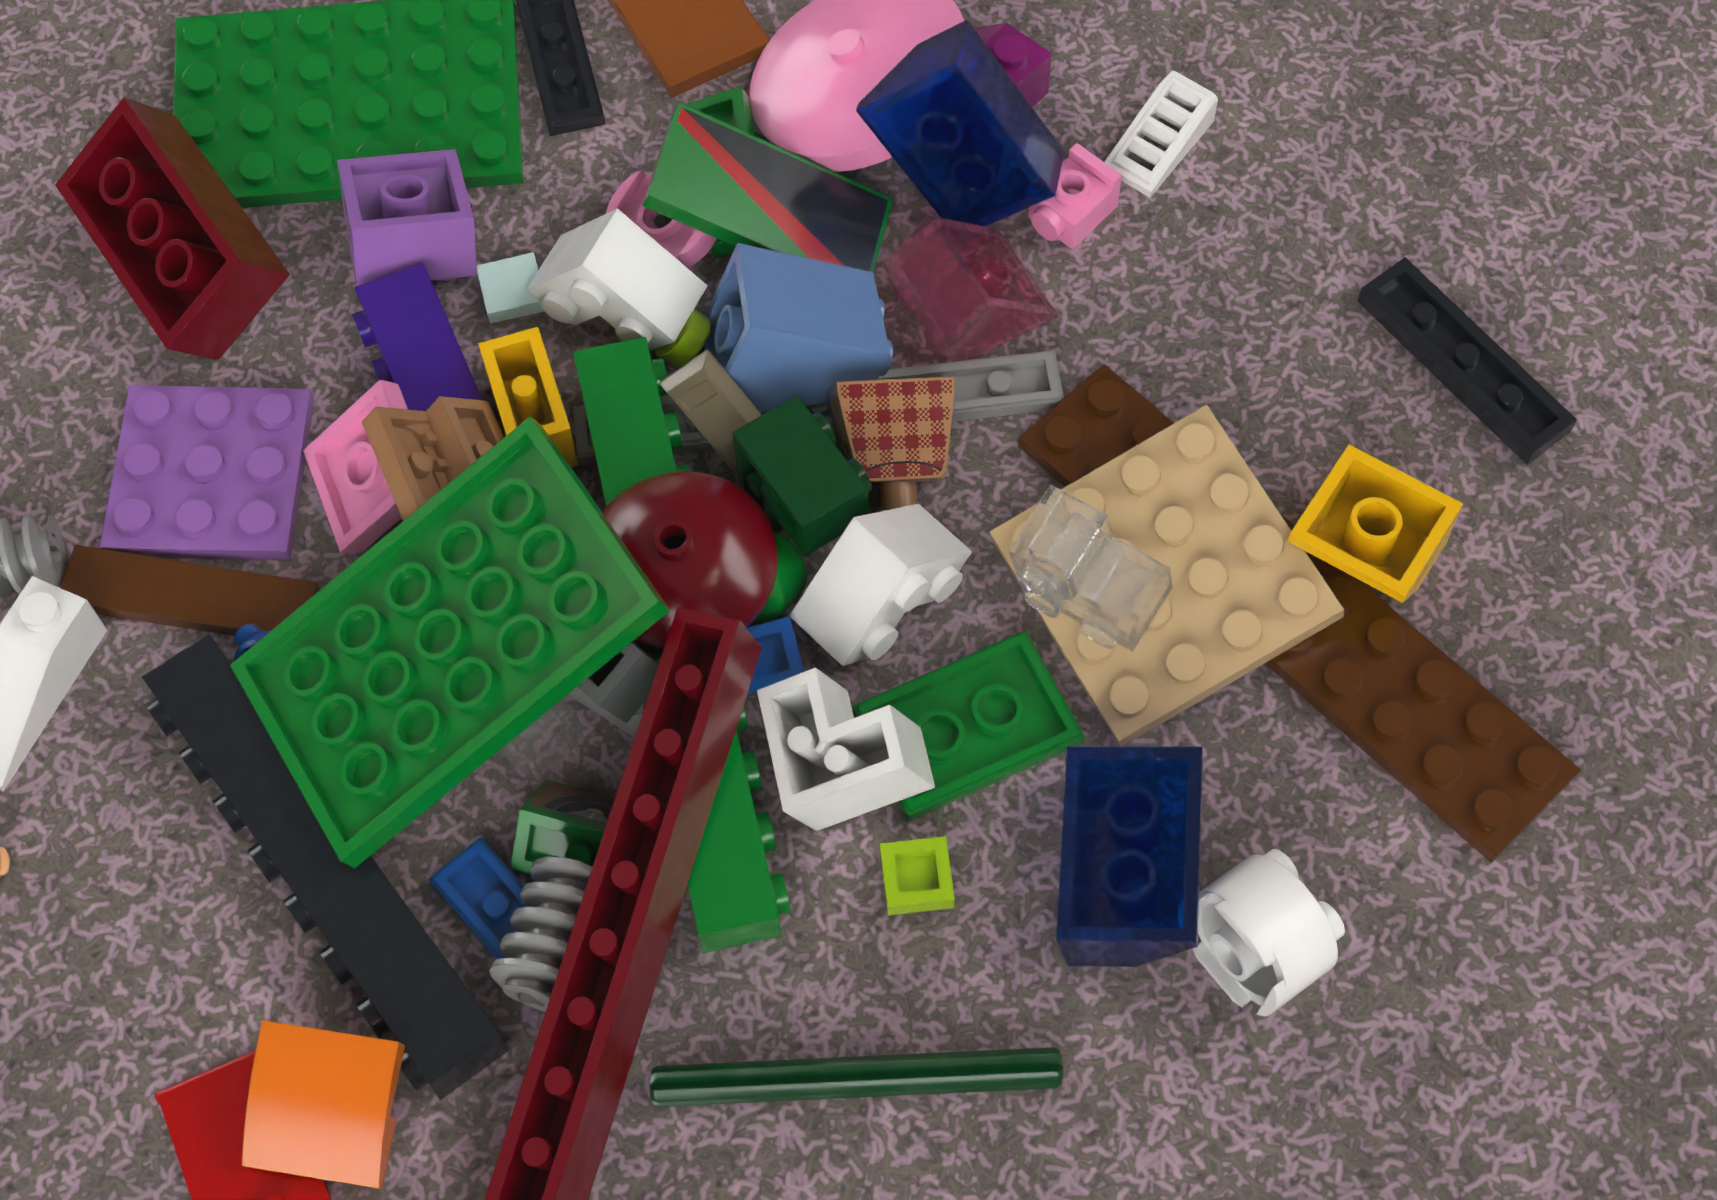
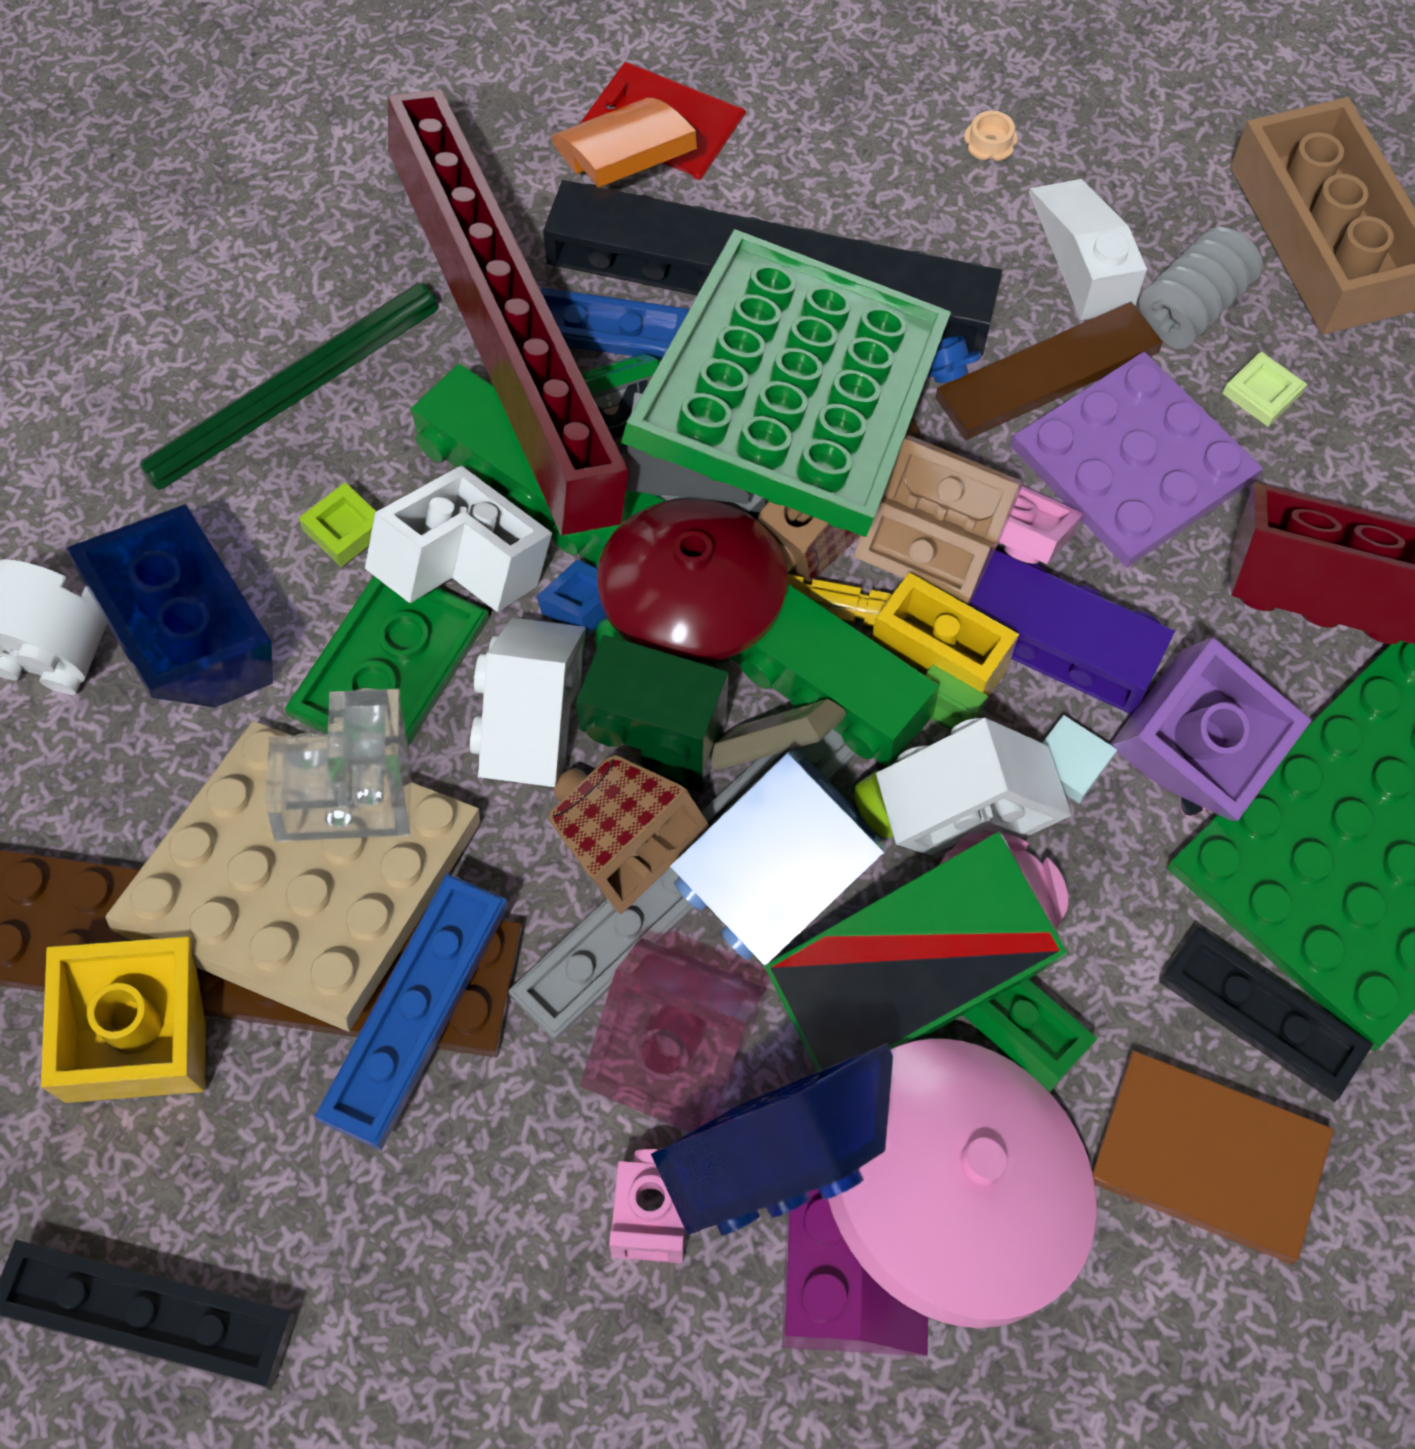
camera: 140 degrees right, 0 degrees up
(41, 455) = (1264, 388): none -> yellowish green tile
(541, 930) = (568, 292): light grey piece -> none
(563, 369) = (955, 699): none -> bright green tile
(1133, 413) = (412, 1012): none -> blue tile
(1180, 104) = (632, 1429): white slope -> none

